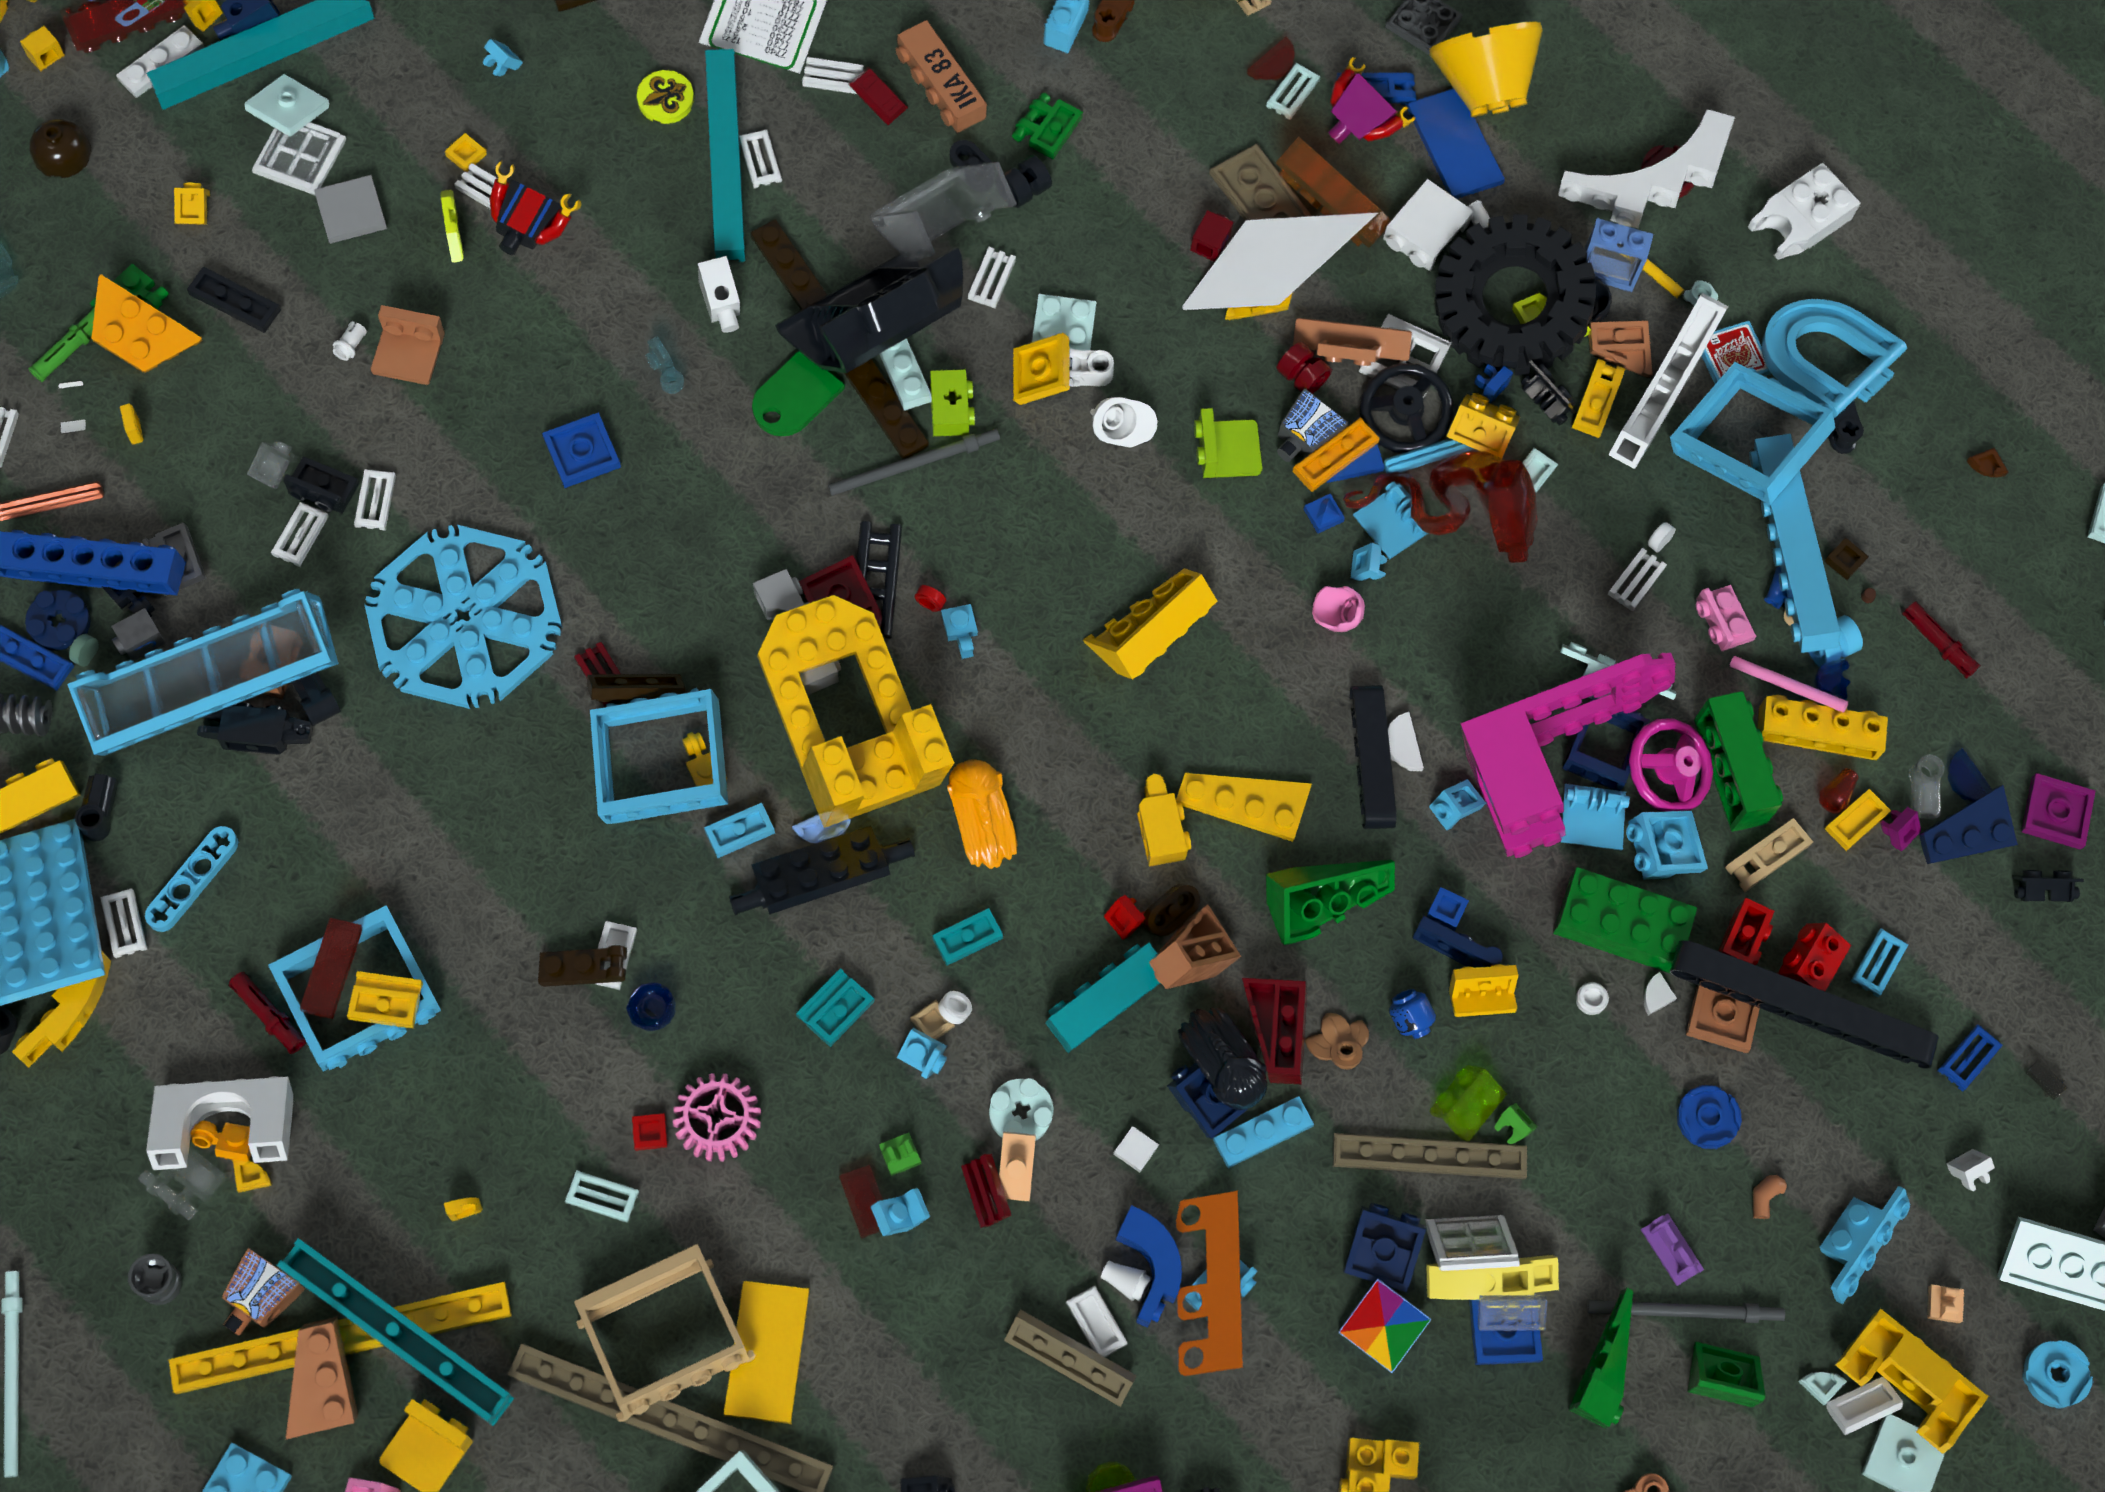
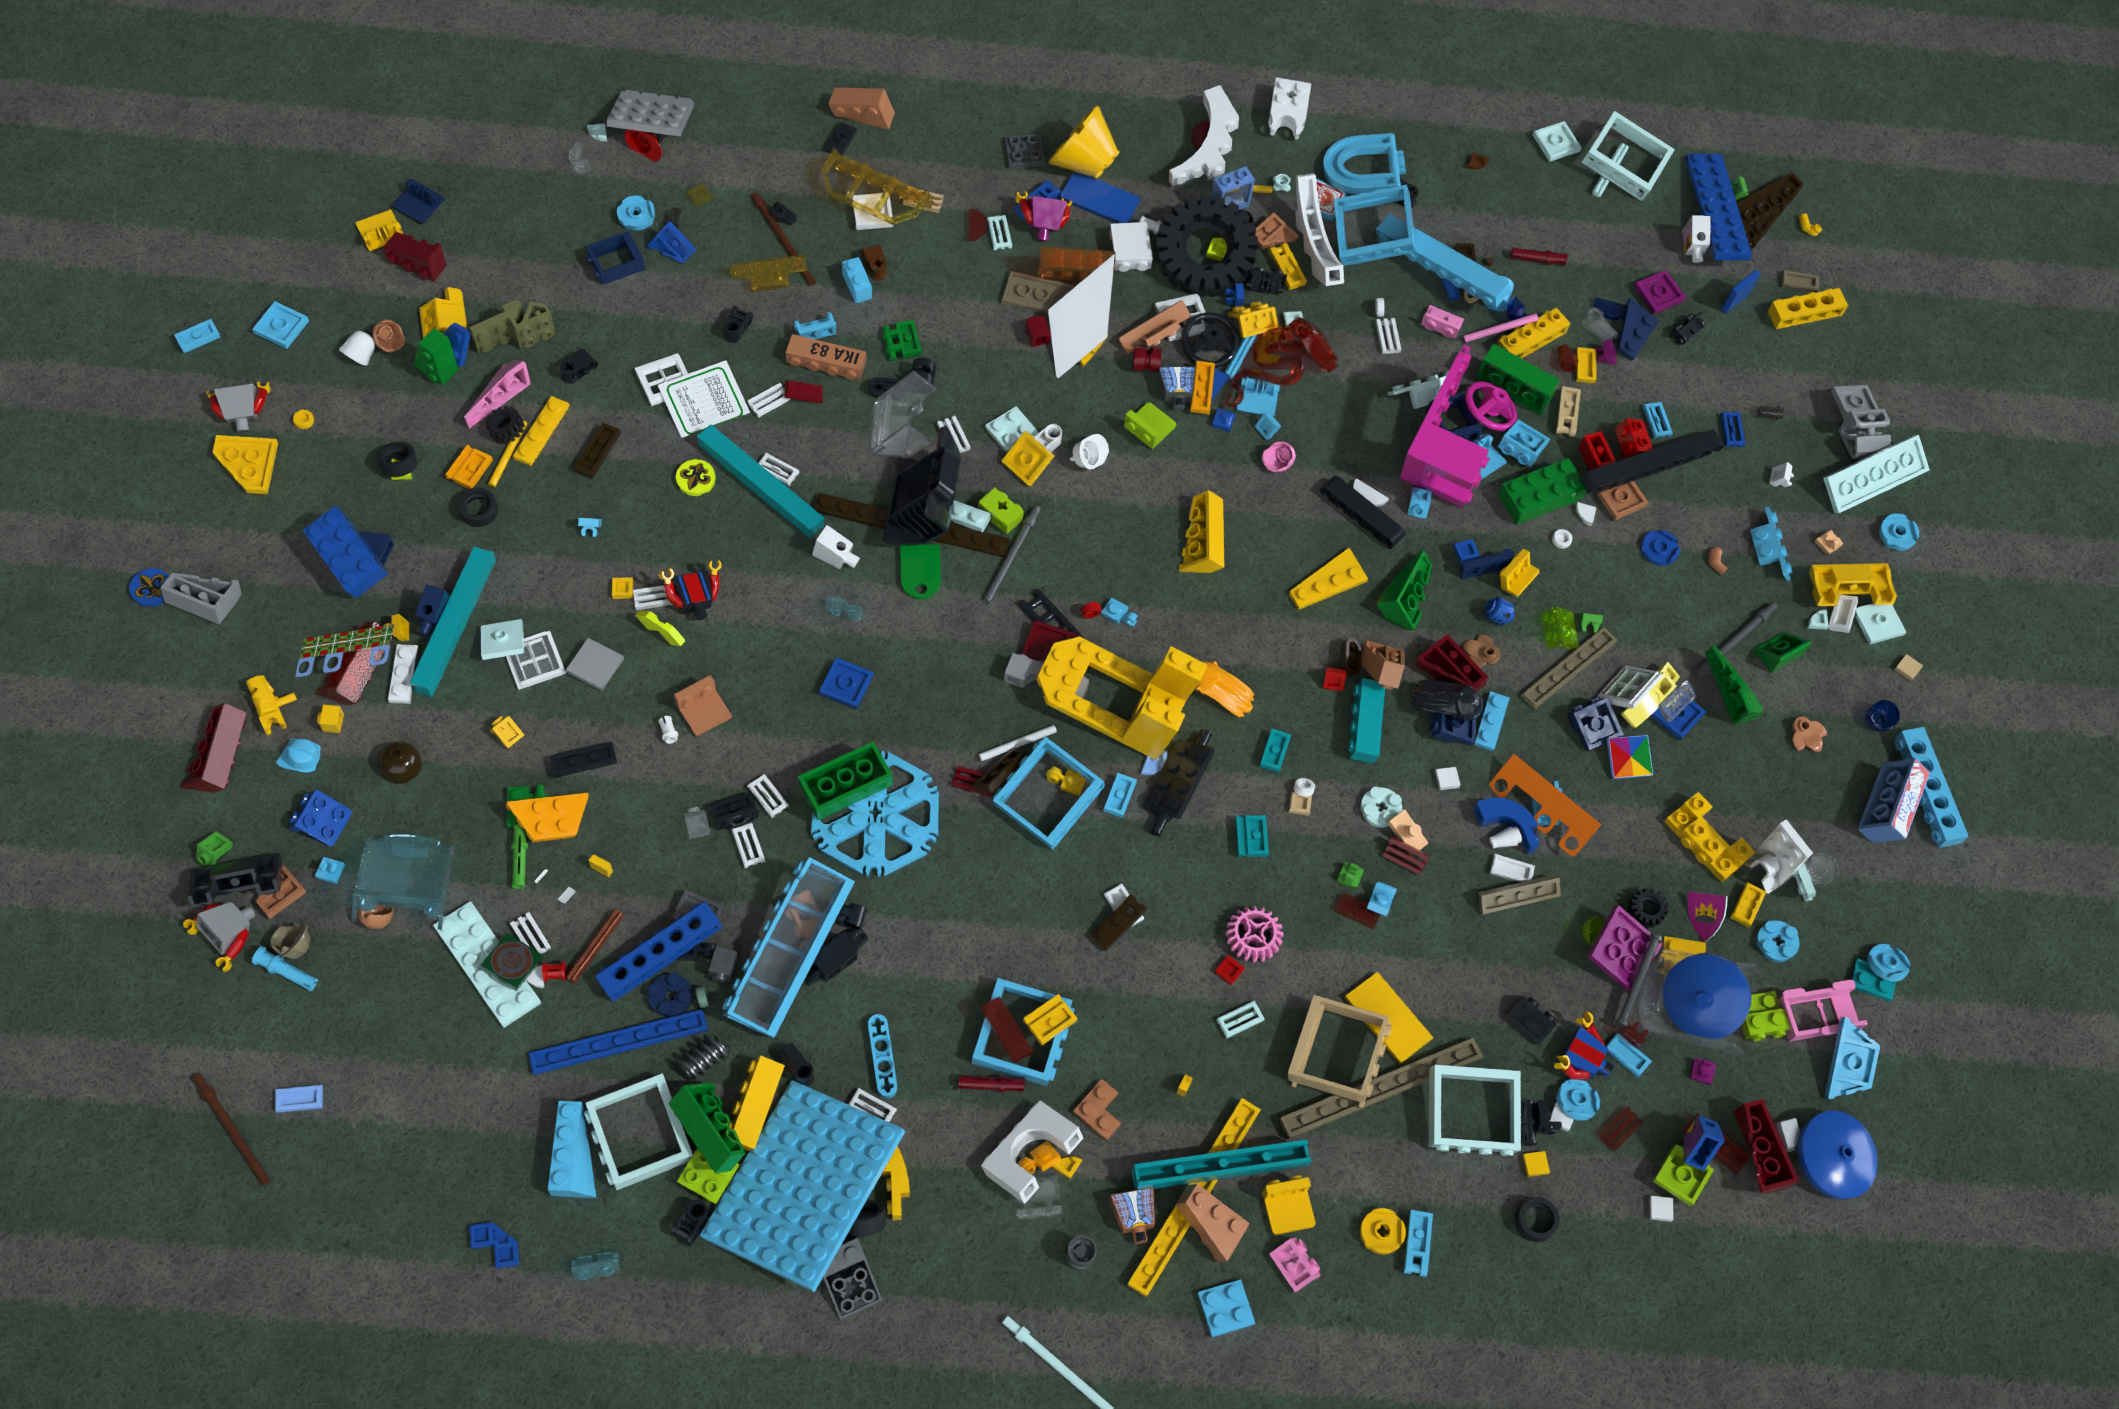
camera: 45 degrees left, 5 degrees down
(340, 1141) = (1093, 1111): none -> nougat plate
(453, 549) = (845, 780): none -> green brick
(656, 999) = (1170, 906): clear blue hair -> none
(694, 674) = (1017, 743): none -> white bar
(923, 1053) = (1313, 820): medium azure bracket -> none
(965, 36) = (817, 328): none -> medium azure hinge
(1161, 824) = (1305, 622): yellow hinge -> none
(1672, 1249) = (1705, 617): medium lavender hinge -> none

